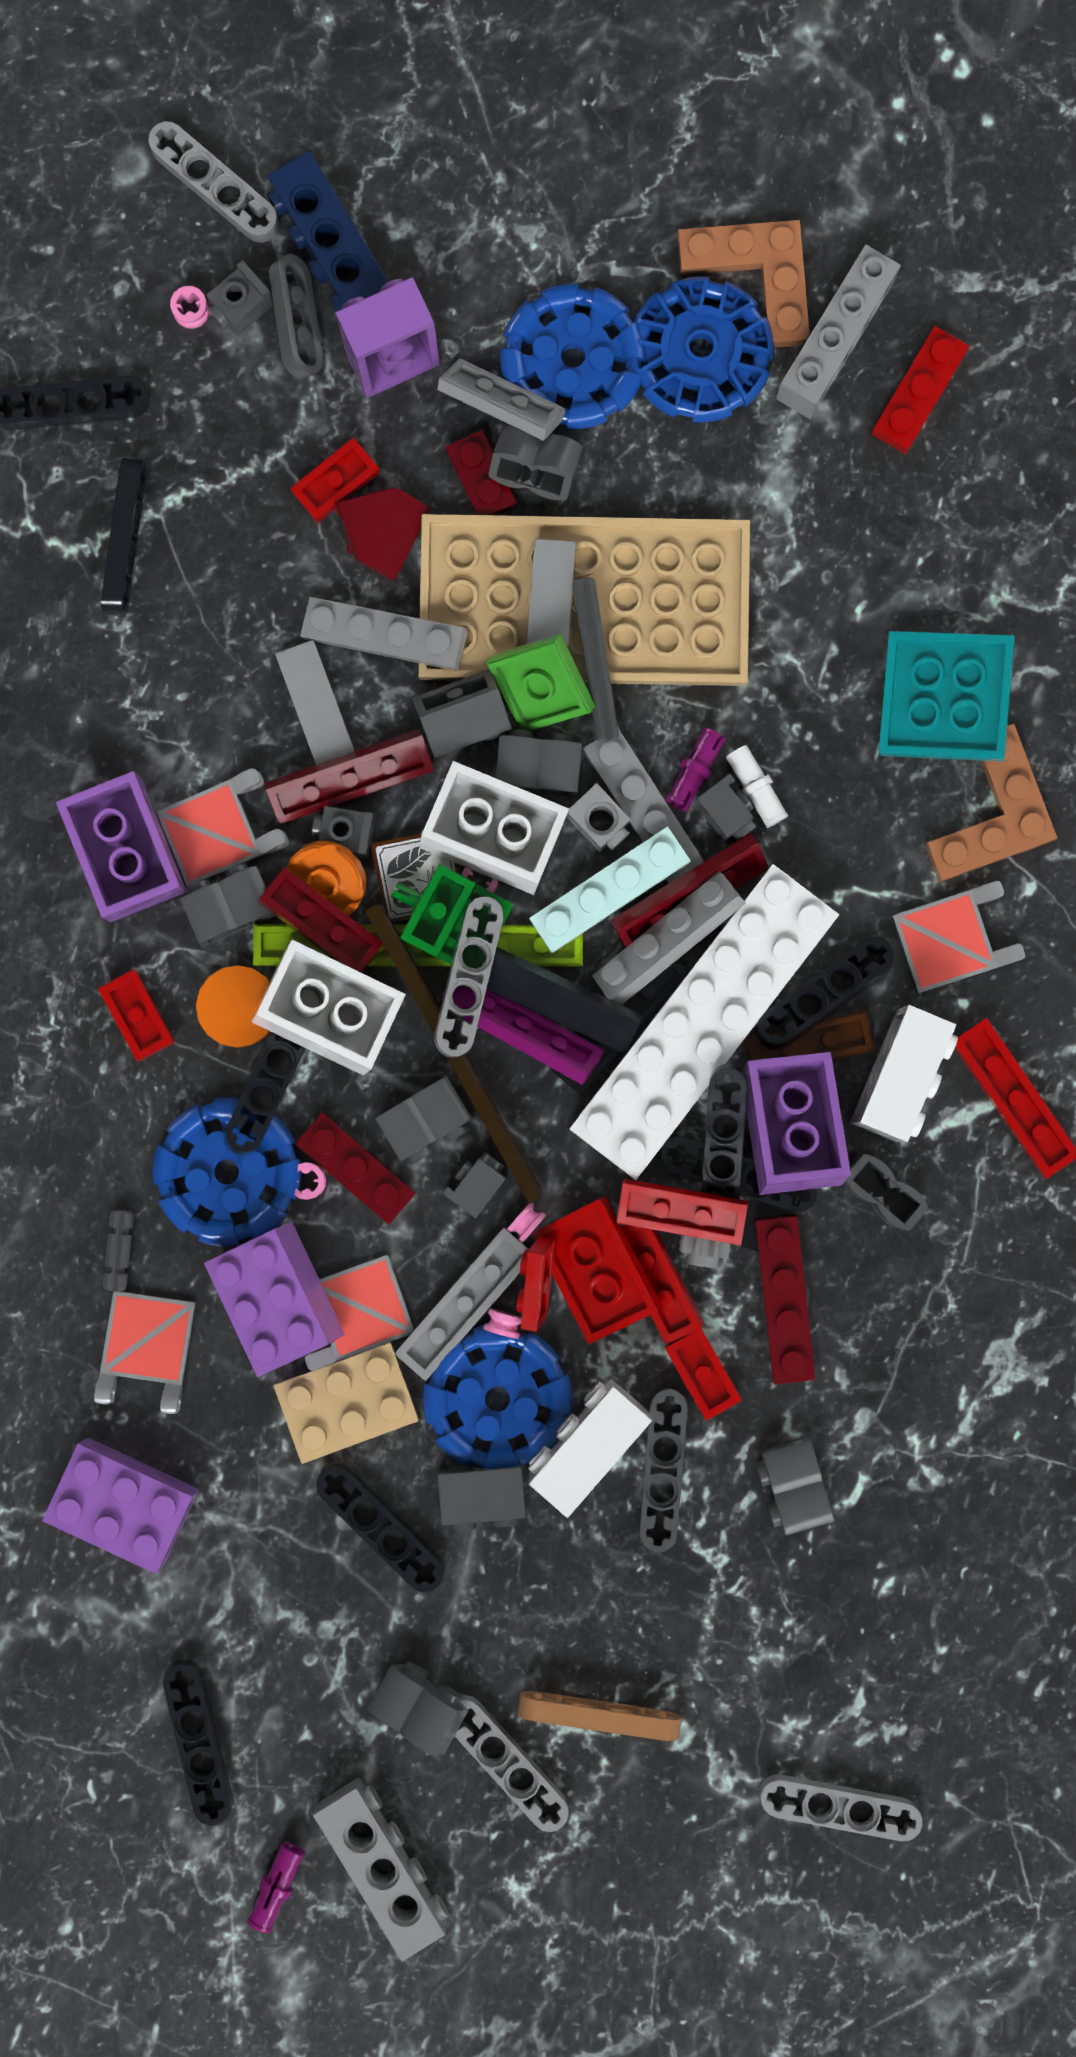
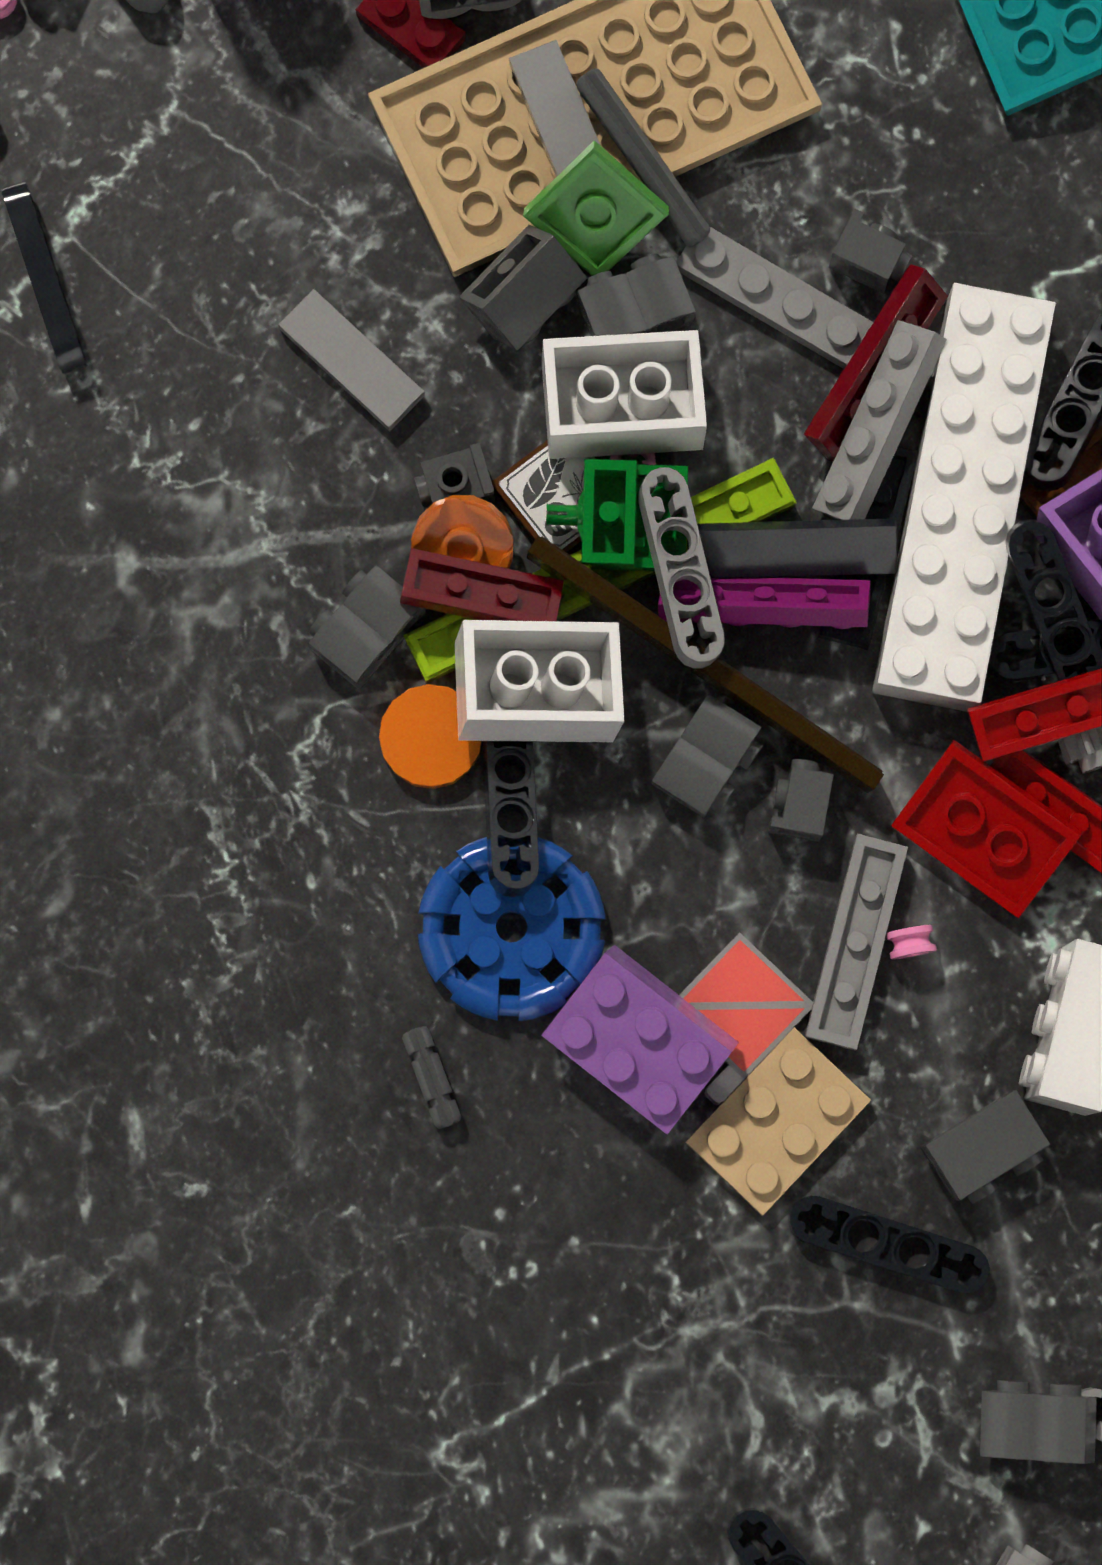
camera: 30 degrees left, 5 degrees down
(120, 1505) = (582, 1363): medium lavender brick -> none
(121, 847) = (214, 617): medium lavender brick -> none
(136, 1015) = (322, 800): red plate -> none
(146, 1342) = (515, 1166): coral flag -> none
(213, 830) = (305, 555): coral flag -> none
(309, 1193) = (616, 906): bright pink bush -> none
(335, 480) = (251, 104): red plate -> none
(349, 776) = (430, 418): dark red plate -> none
(355, 1168) = (655, 852): dark red plate -> none
(381, 528) = (330, 131): dark red slope -> none
(384, 633) = (391, 242): light grey plate -> none
(491, 1423) = (978, 1024): blue plate -> none
(526, 1222) = (879, 815): bright pink bush -> none
(535, 1296) = (932, 897): red plate -> none
(598, 800) = (726, 310): light grey brick -> none
(610, 889) = (785, 401): light aqua plate -> none
(695, 769) = (811, 227): magenta pin -> none
(757, 786) = (889, 212): white pin -> none

